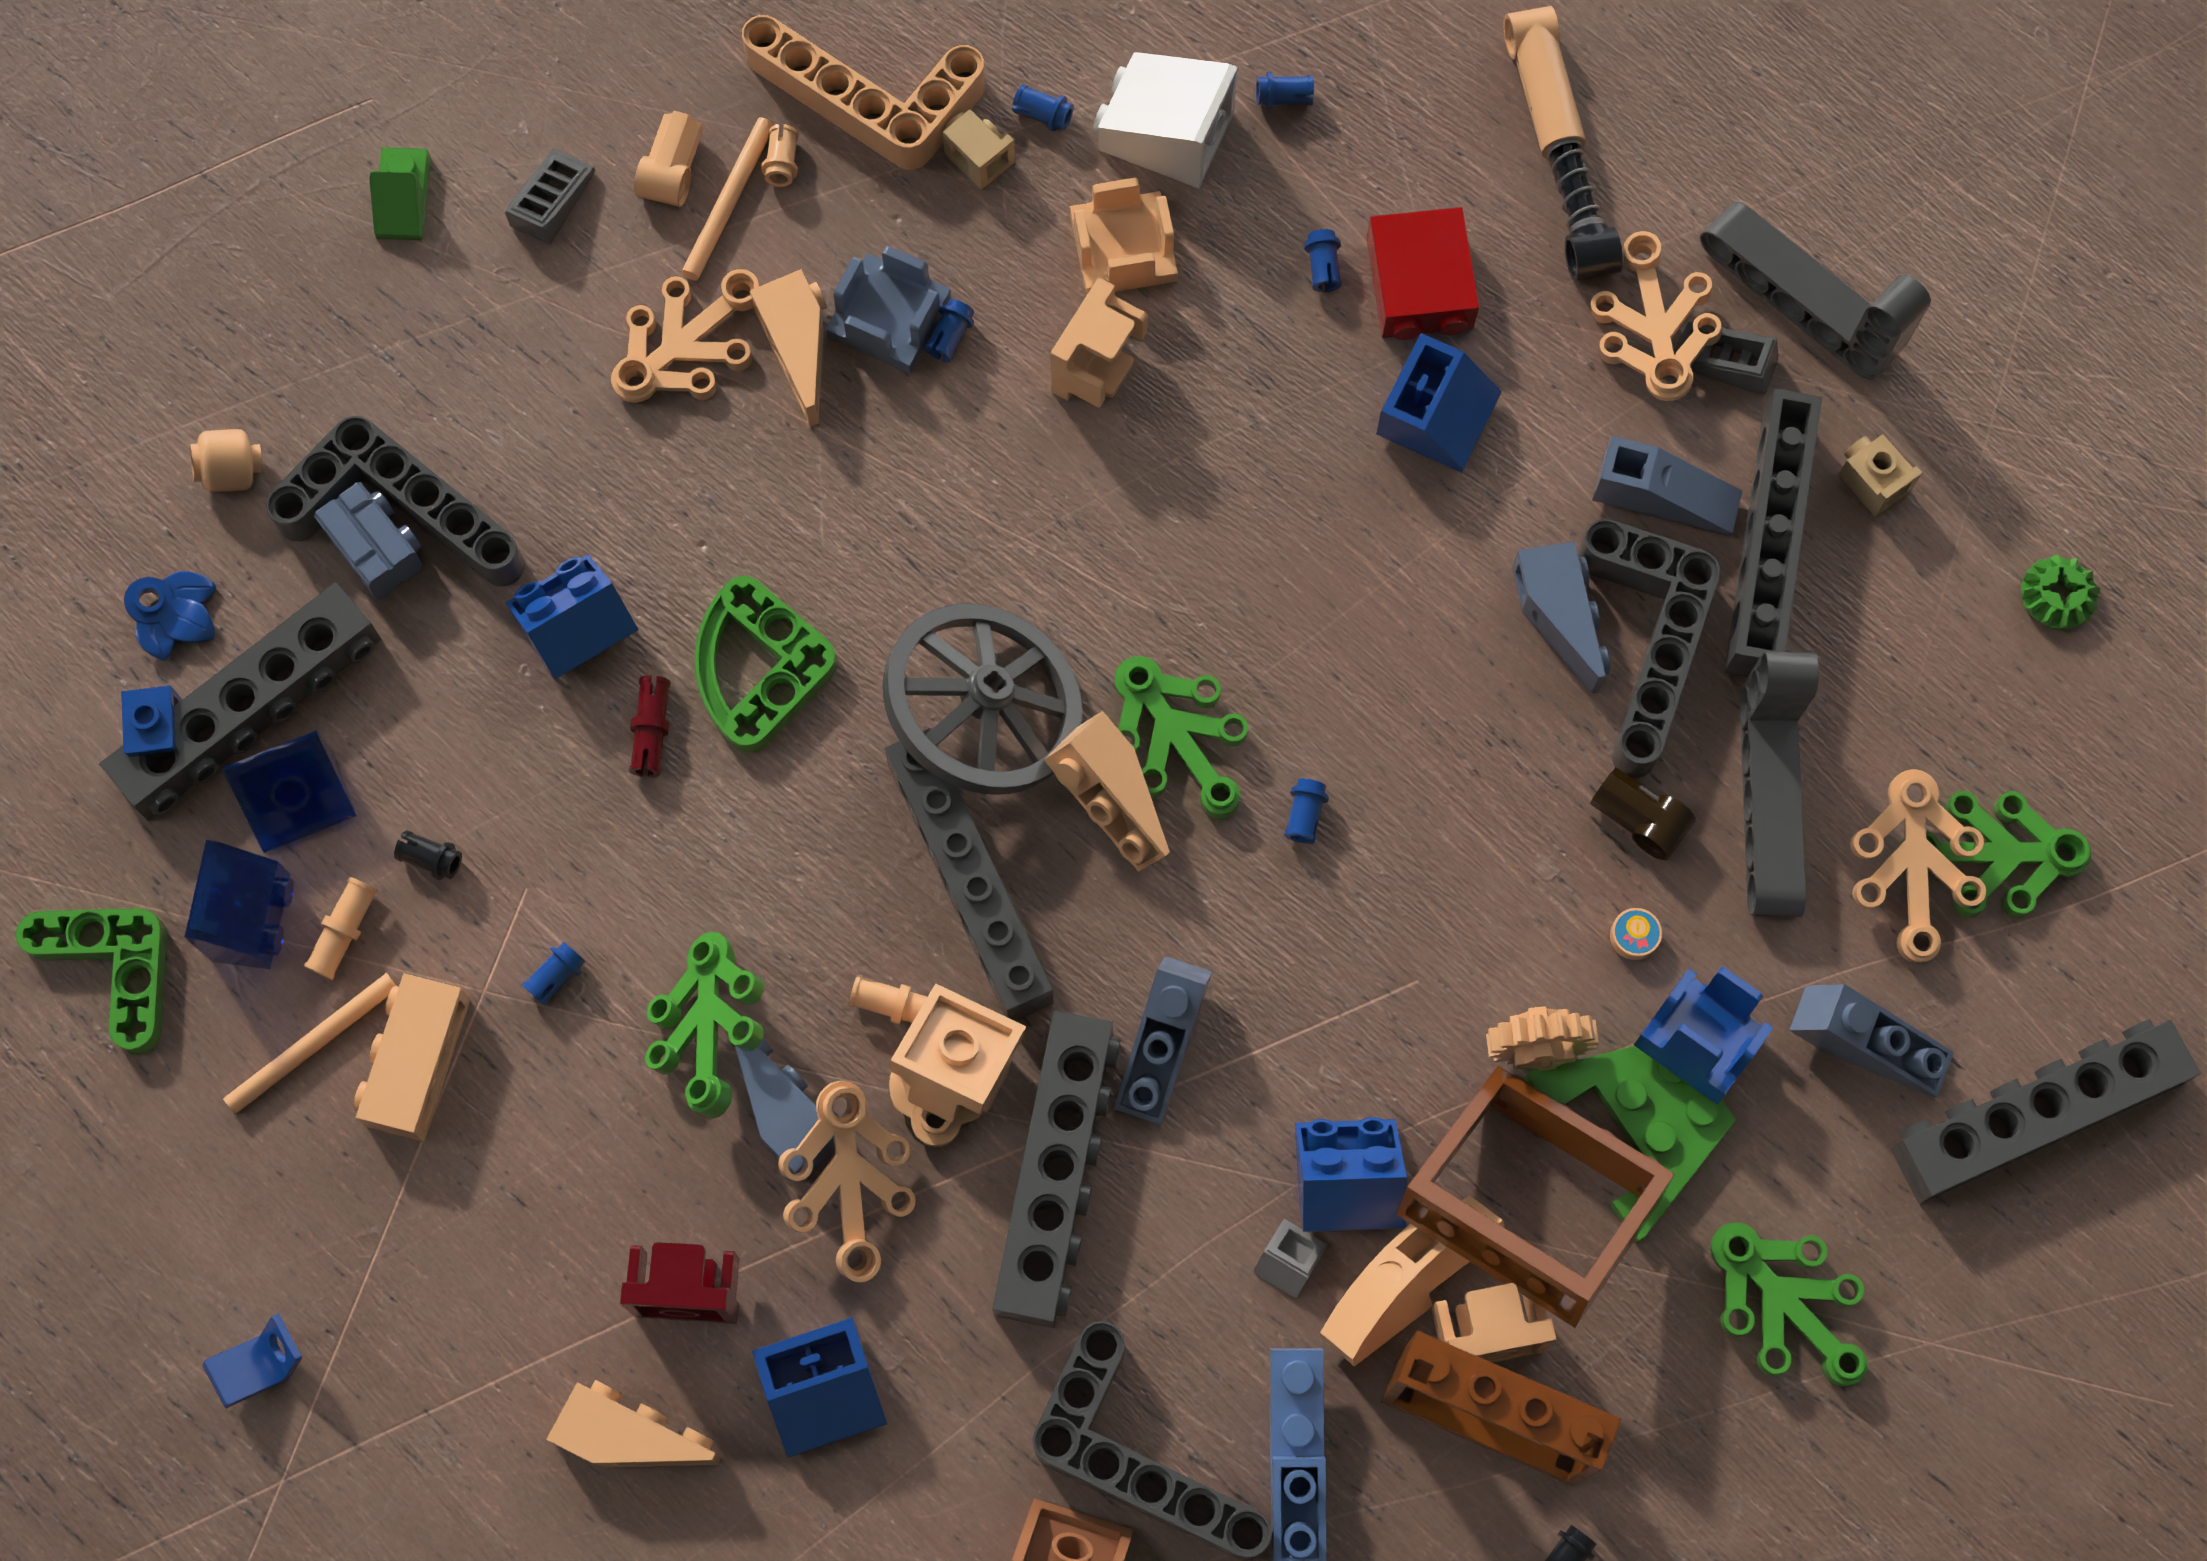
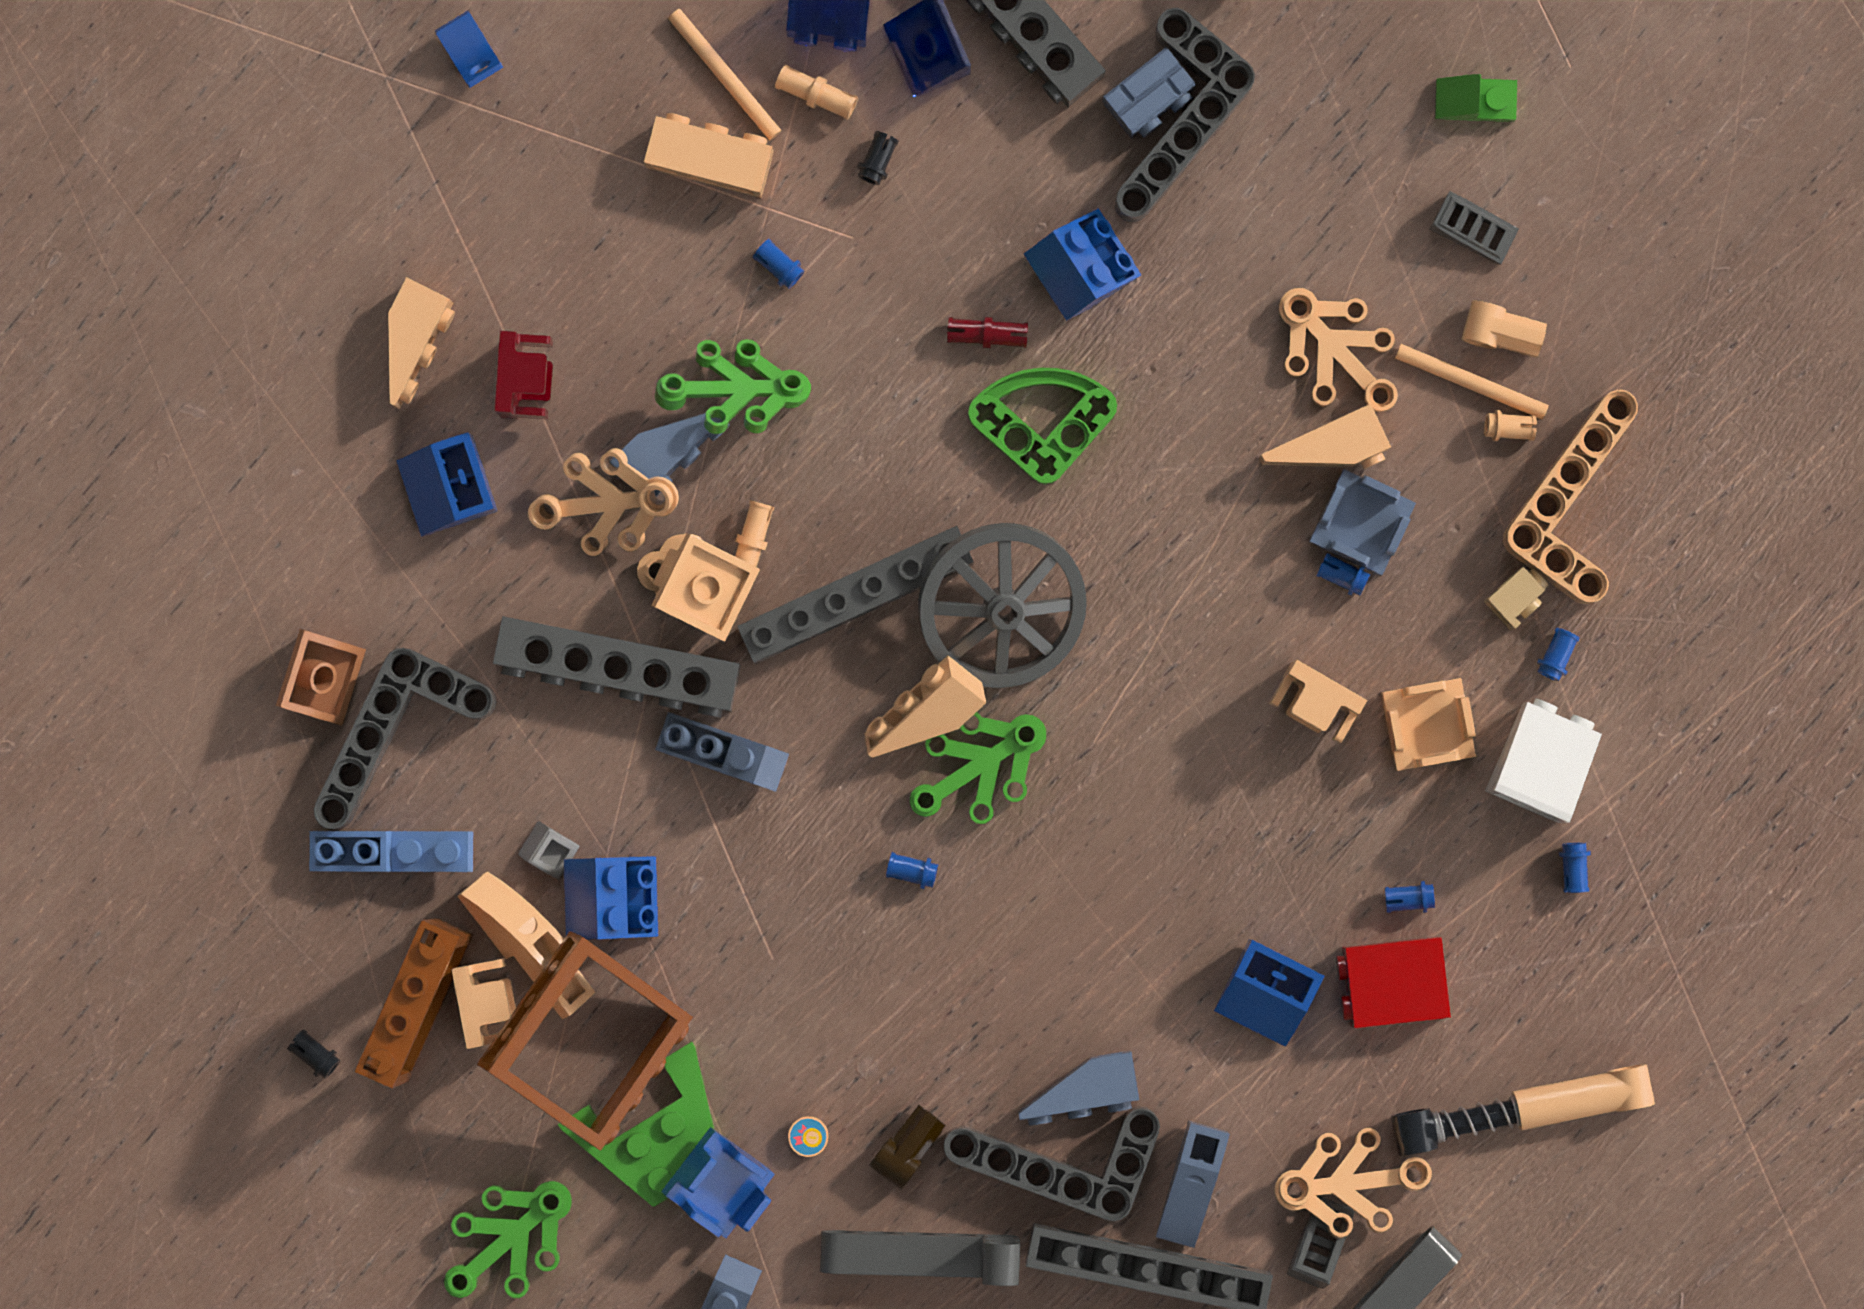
camera: 90 degrees right, 15 degrees up
(1542, 1038) = (712, 1053): light nougat gear -> none

